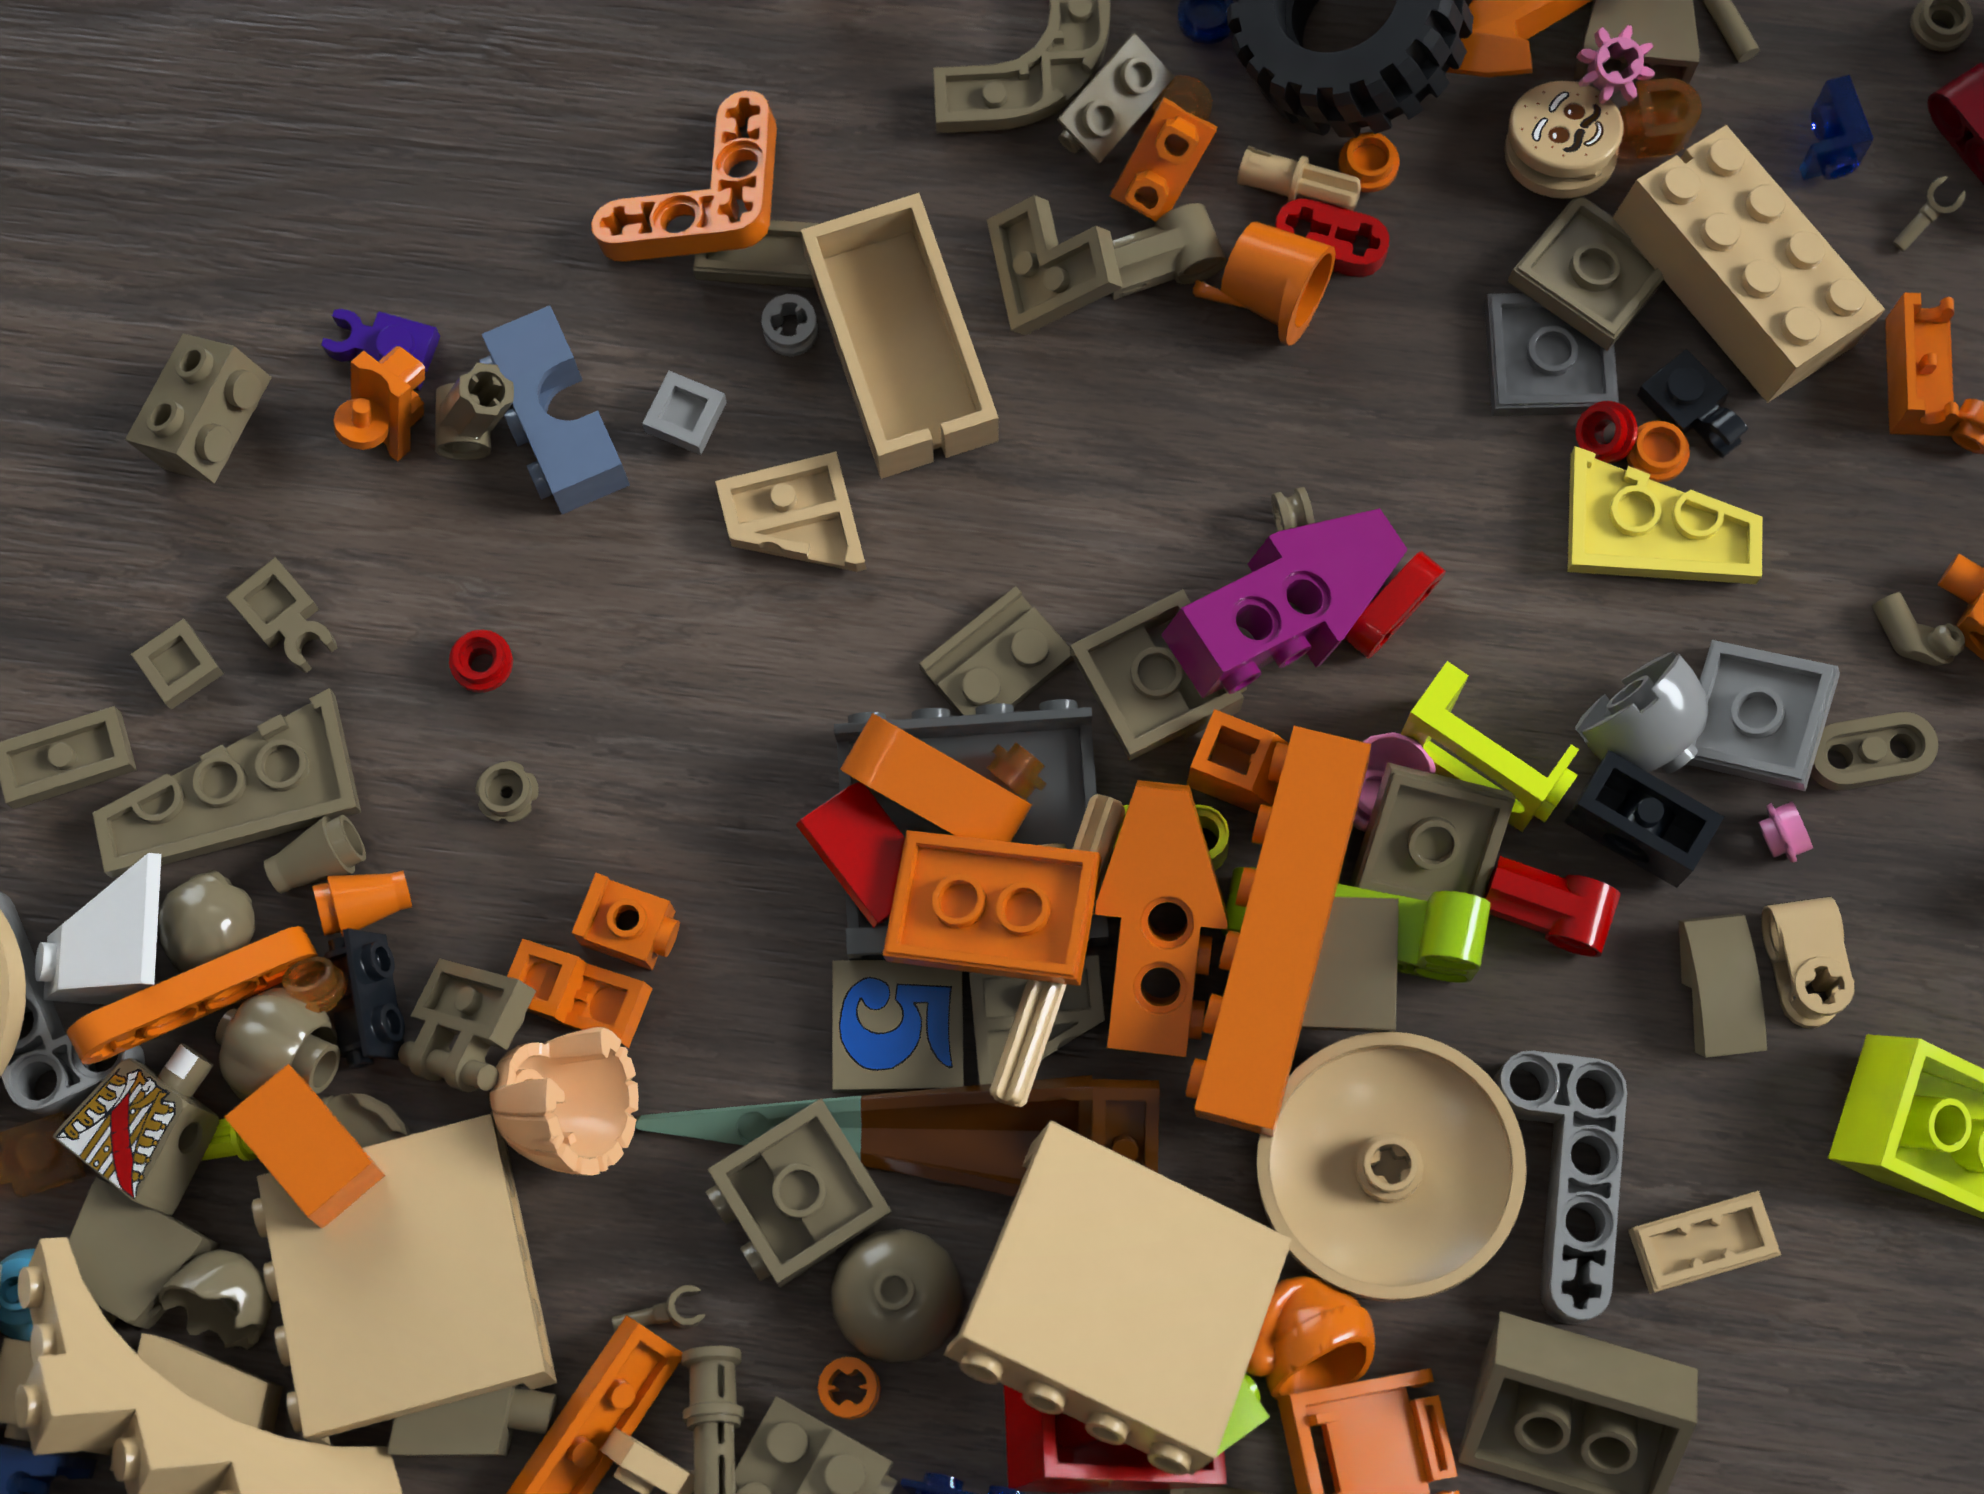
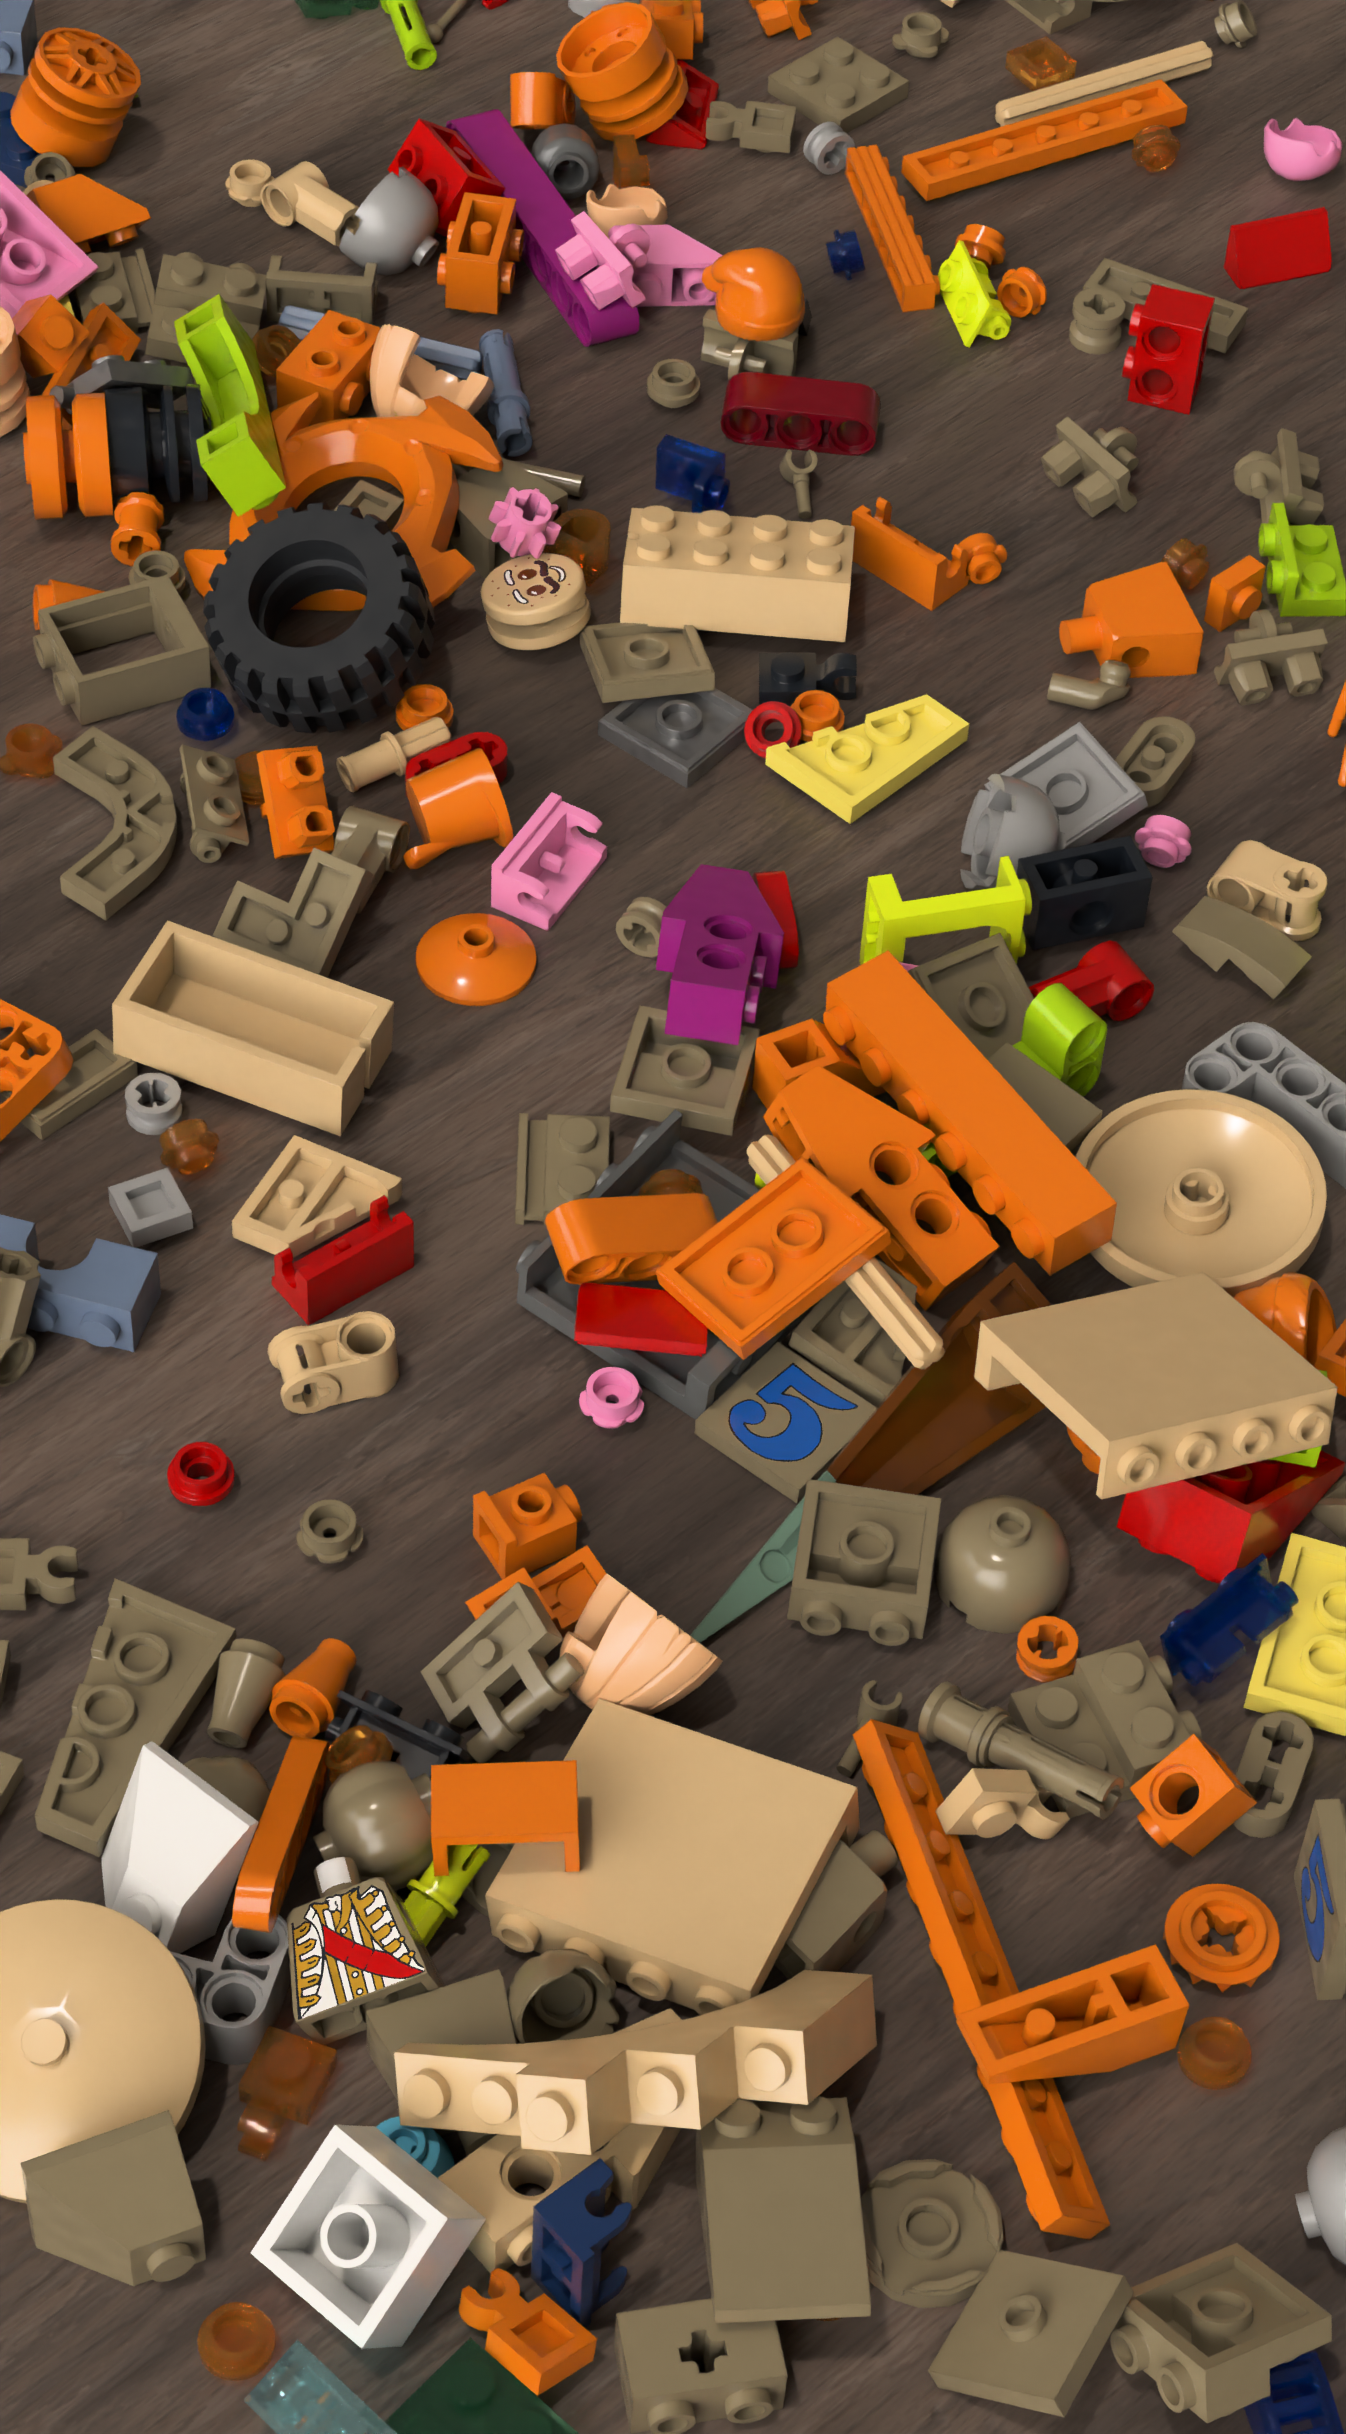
camera: 55 degrees left, 25 degrees down
(646, 658) = (340, 1361): none -> tan piece
(756, 589) = (347, 1265): none -> red hinge
(766, 387) = (188, 1146): none -> clear orange plate
(798, 867) = (612, 1385): none -> bright pink plate
(1152, 444) = (475, 959): none -> orange dish
(1291, 389) = (547, 863): none -> bright pink hinge

